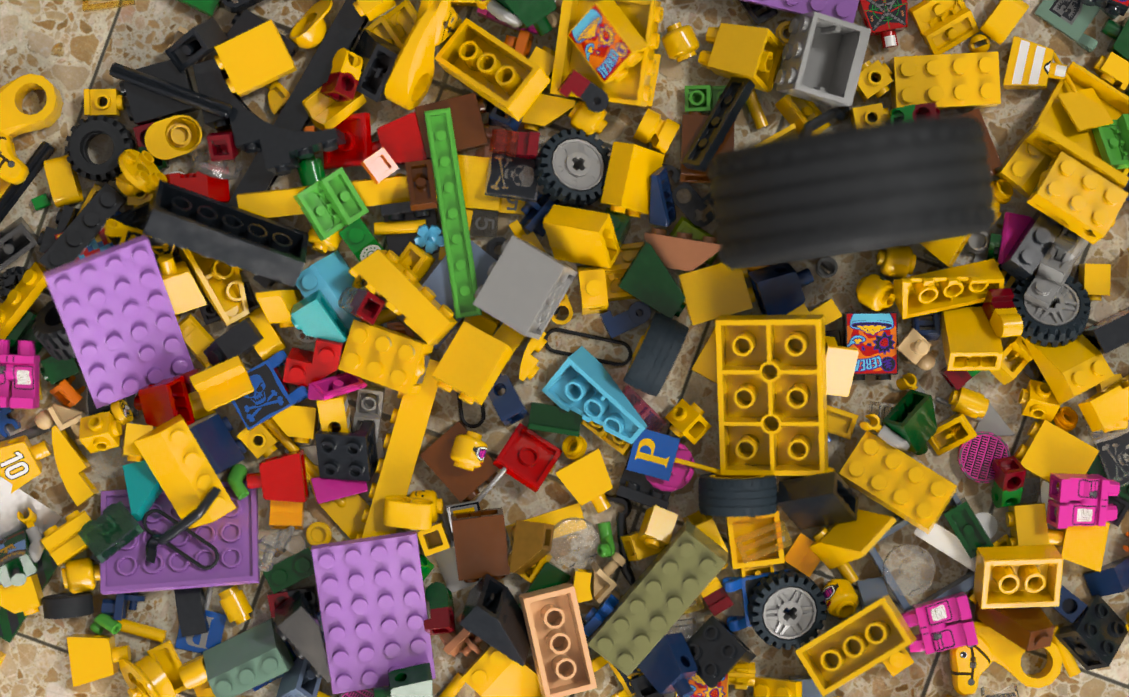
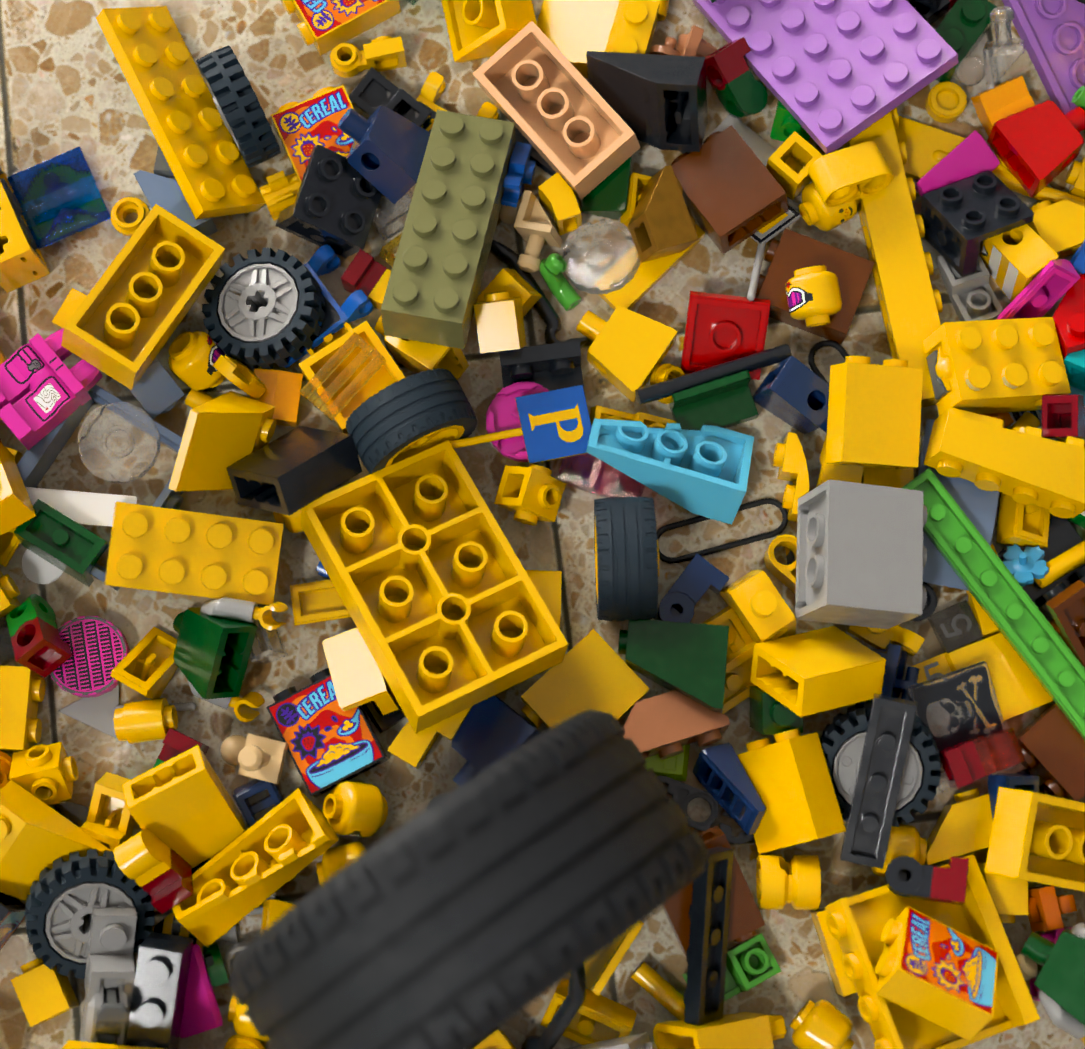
camera: 155 degrees right, 10 degrees down
(547, 437) = (750, 363): none -> black bar
(582, 158) = (878, 781): none -> black plate
(820, 574) = (240, 376): none -> yellow tile

